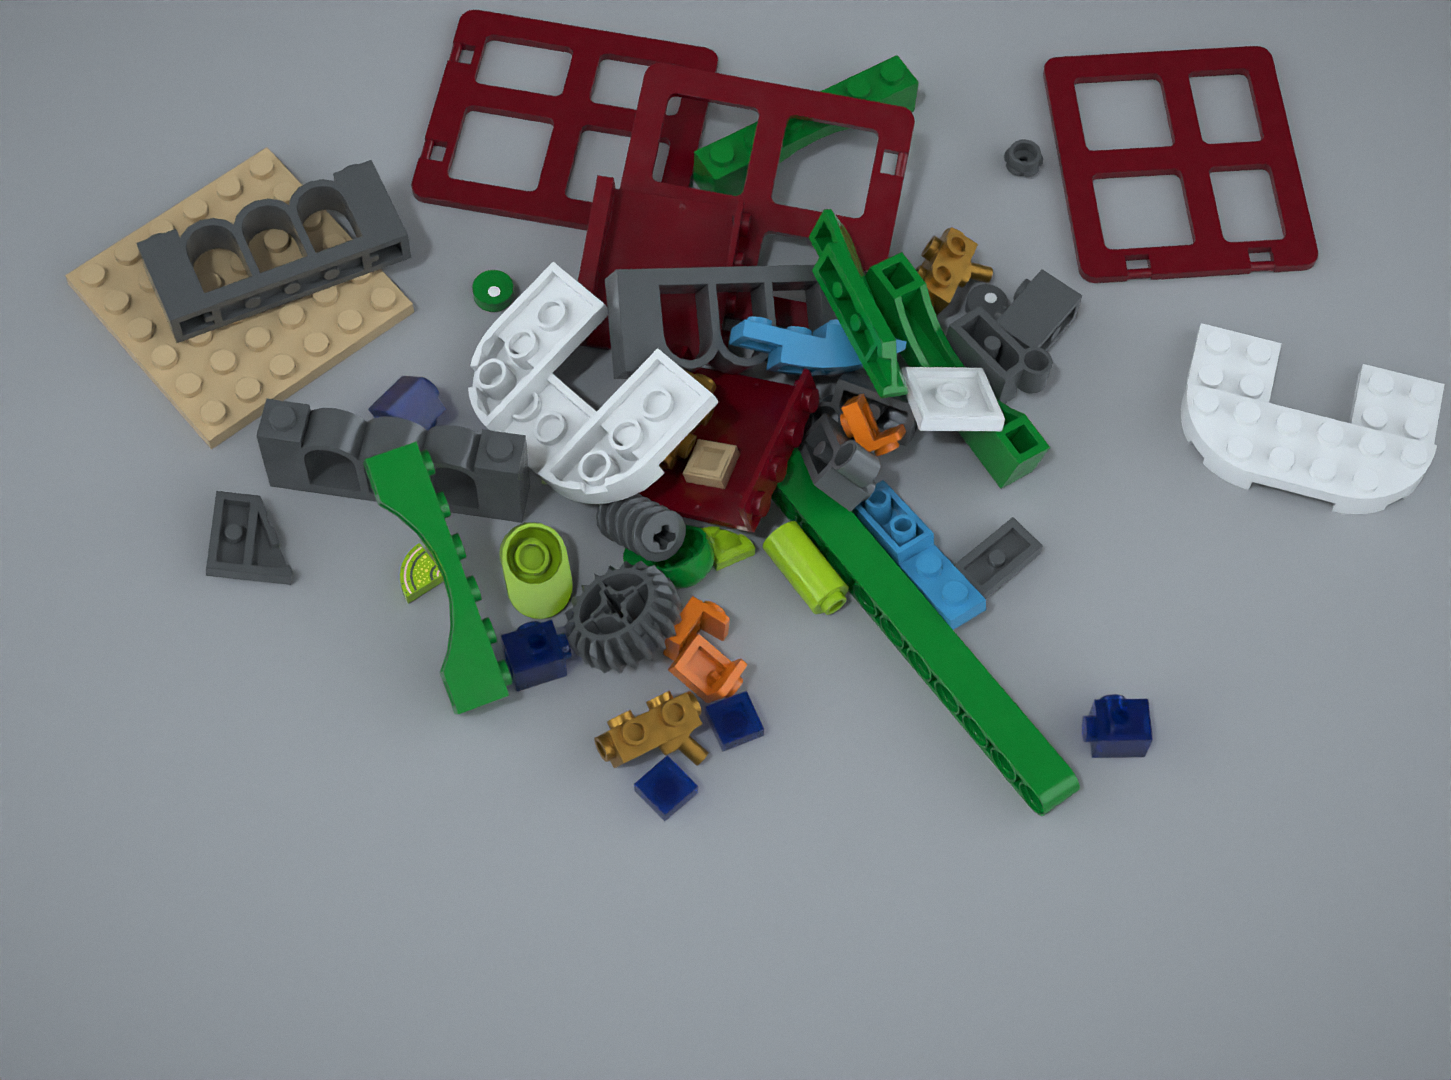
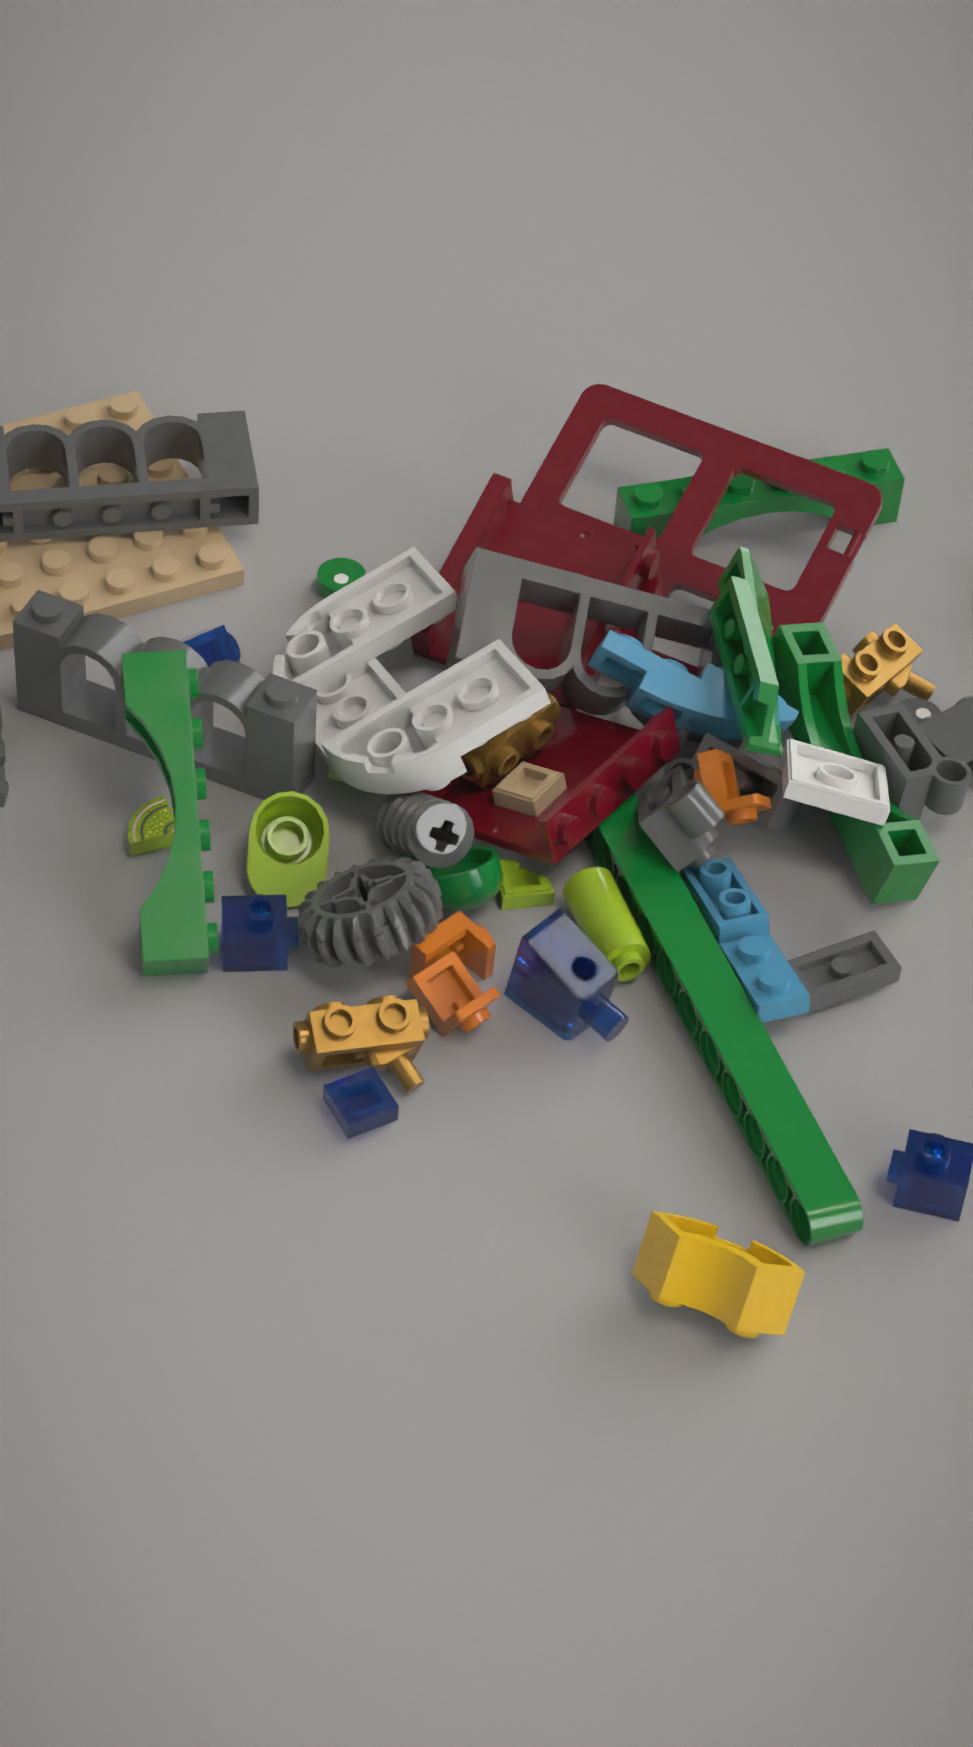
camera: 15 degrees right, 15 degrees down
(568, 113) = (487, 437): dark red window -> none
(734, 721) = (466, 1056): clear blue plate -> none
(794, 637) = (565, 980): none -> clear blue torso
(987, 871) = (694, 1268): none -> yellow brick

